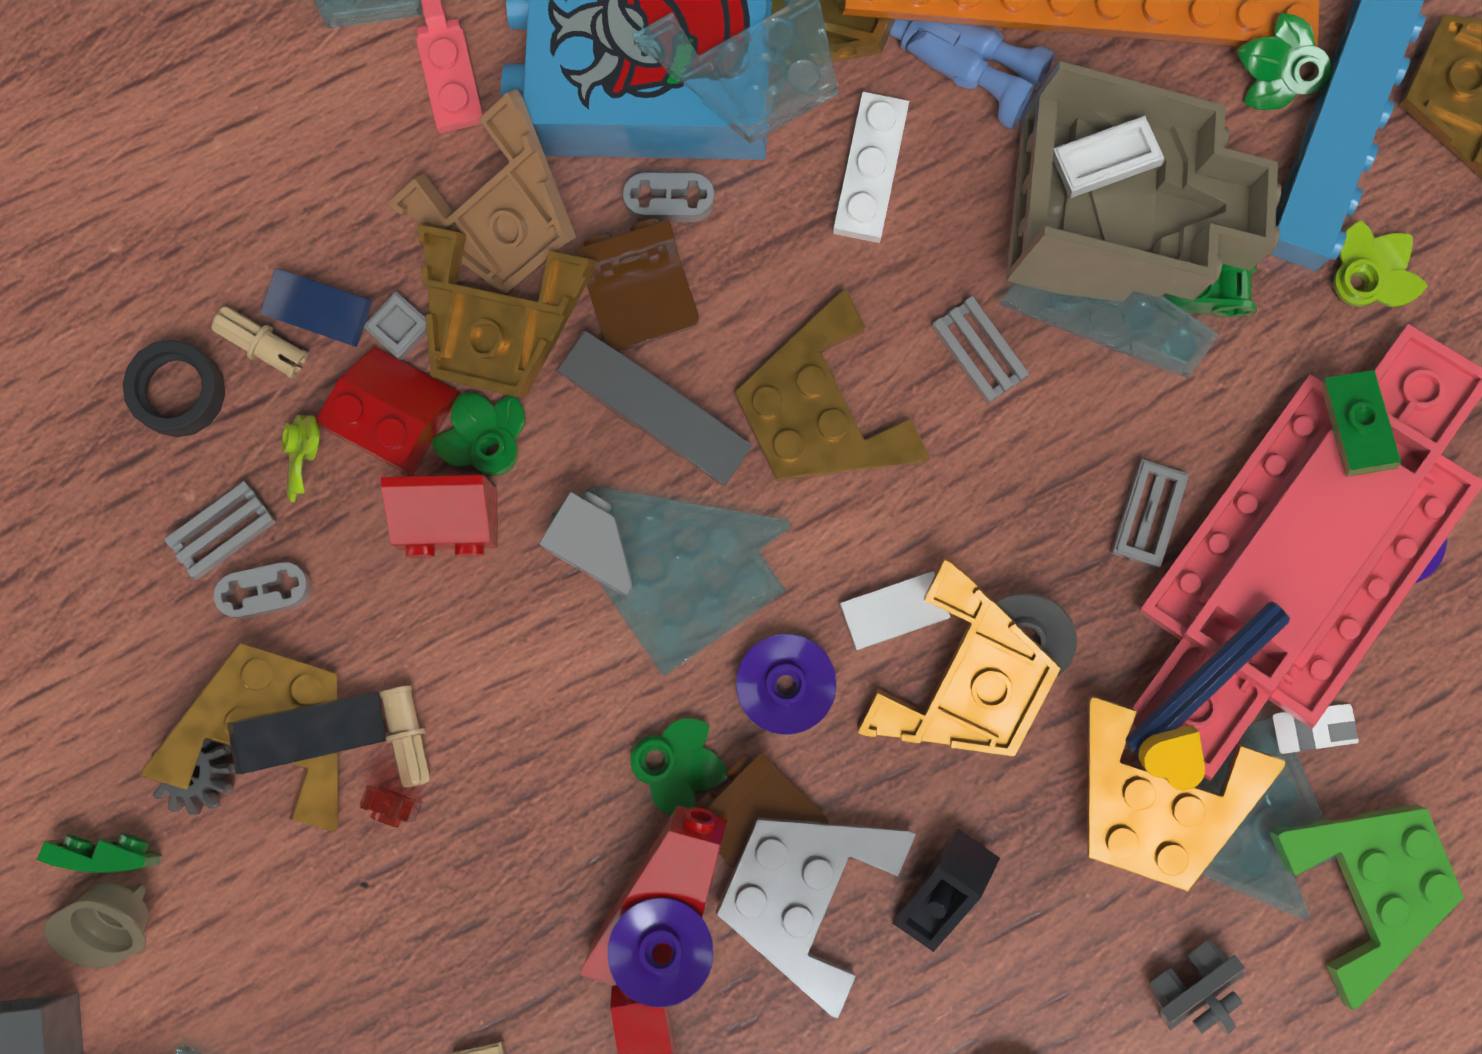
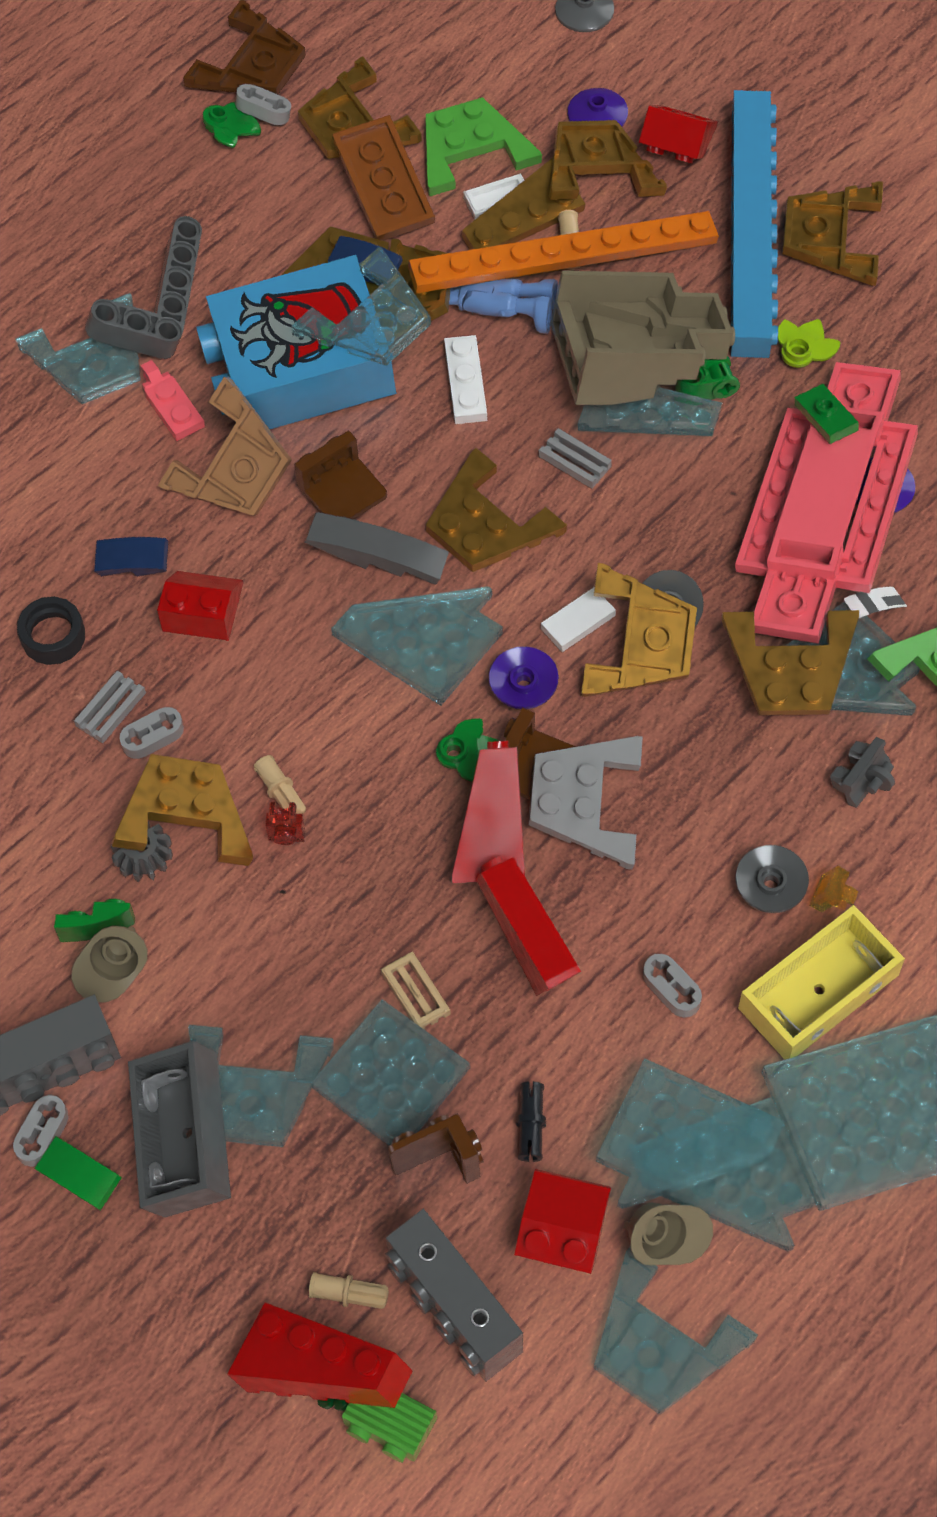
camera: 20 degrees left, 20 degrees down
(259, 341) = (99, 587): tan axle -> none
(301, 443) = (149, 635): lime plate -> none
(306, 732) = (214, 793): black tile -> none
(397, 326) = (189, 554): light grey tile -> none
(441, 514) = (259, 641): slope -> none
(477, 429) = (268, 599): green plate -> none
(490, 336) = (257, 534): pearl gold wing -> none
(590, 541) = (366, 628): light grey slope -> none
(633, 948) = (497, 818): dark purple dish -> none
(670, 186) = (340, 424): light grey beam -> none
(947, 890) = (675, 766): black slope -> none
(1107, 157) = (612, 321): white tile -> none
(1137, 552) = (720, 540): light grey tile -> none
(1175, 756) = (788, 626): yellow tile -> none
(1212, 674) = (790, 578): dark blue axle -> none
(1277, 63) = (698, 252): green plate -> none

